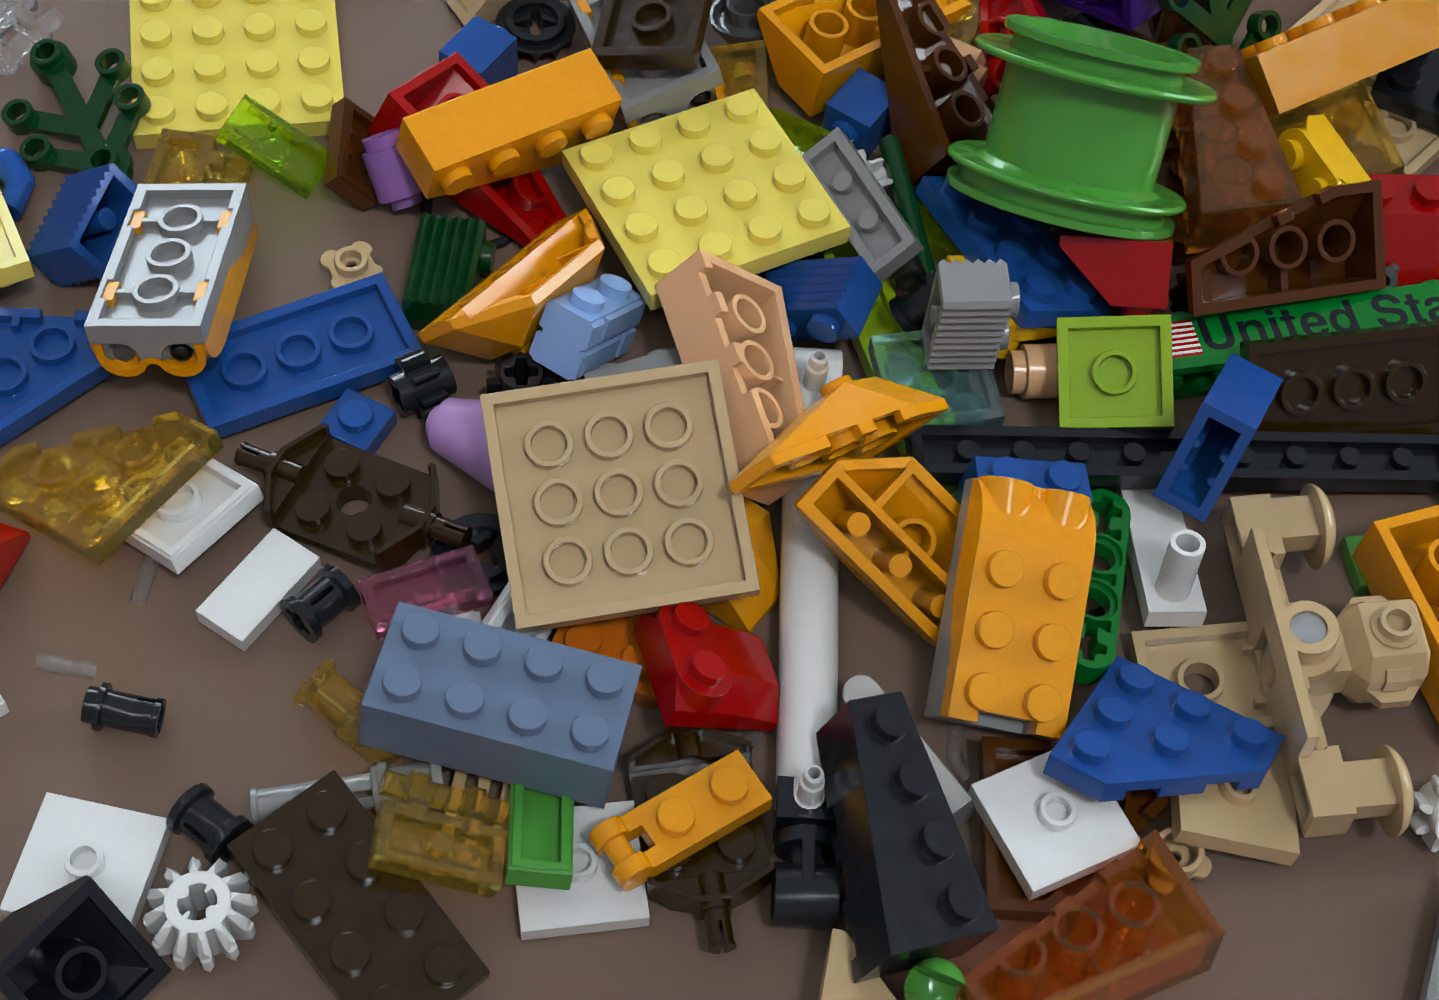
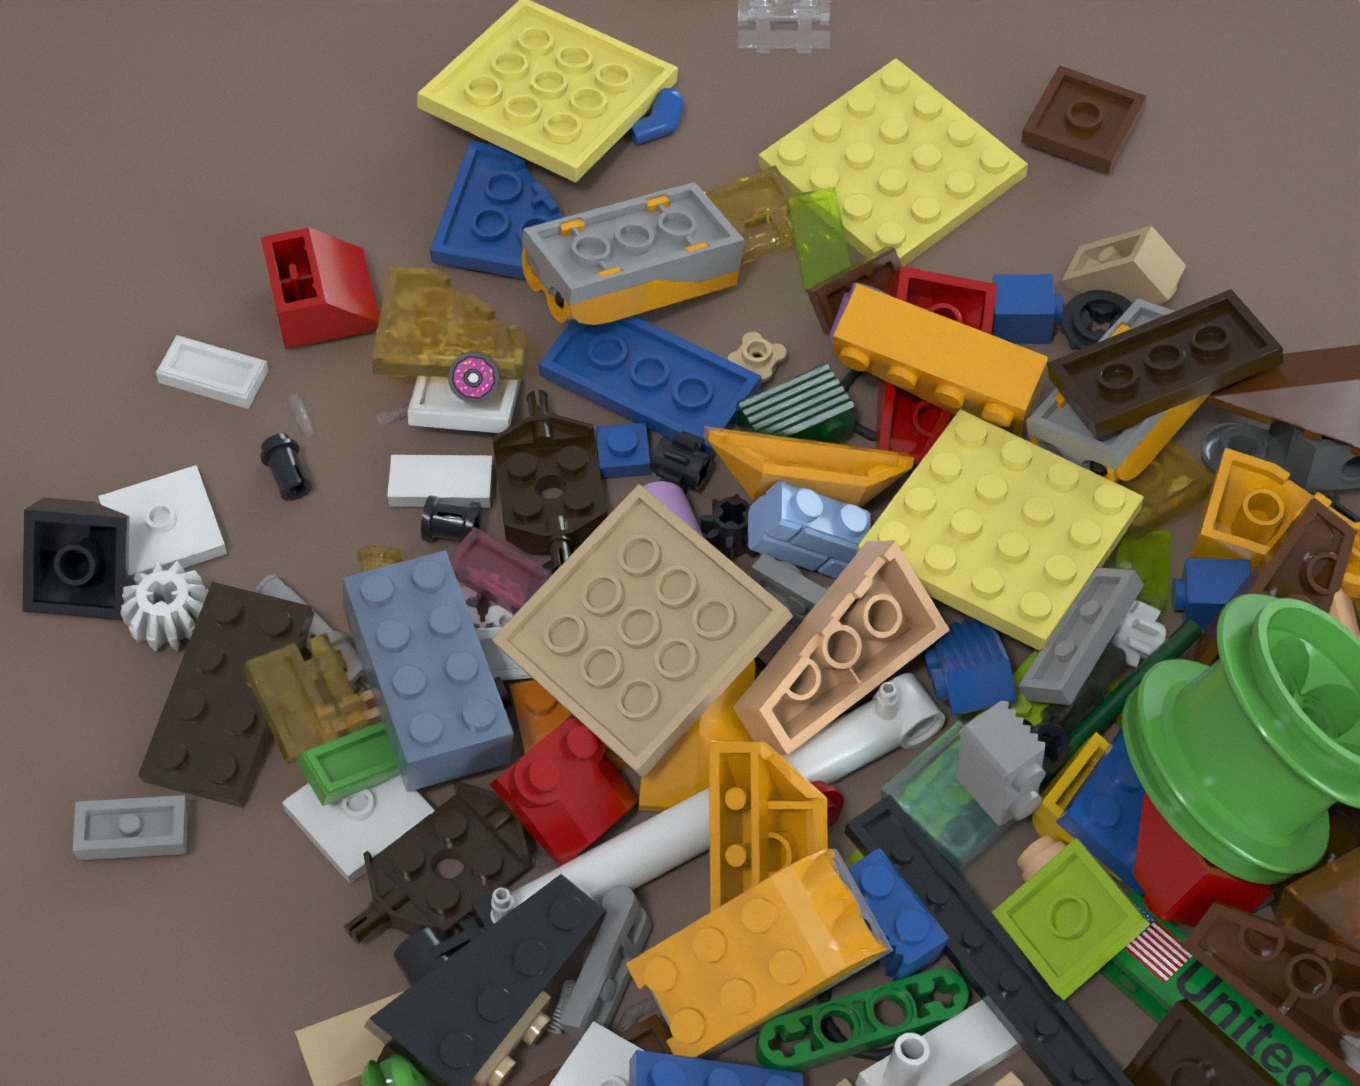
camera: 65 degrees right, 0 degrees up
(56, 67) = (720, 157): dark green plant -> none
(82, 225) = (646, 173): blue brick -> none
(194, 477) = (474, 376): none -> tile
(206, 822) = (236, 561): black bush -> none
(681, 820) = (429, 845): light orange plate -> none
(847, 423) = (837, 745): light orange wedge -> none
(1217, 437) = (1066, 1025): blue slope -> none

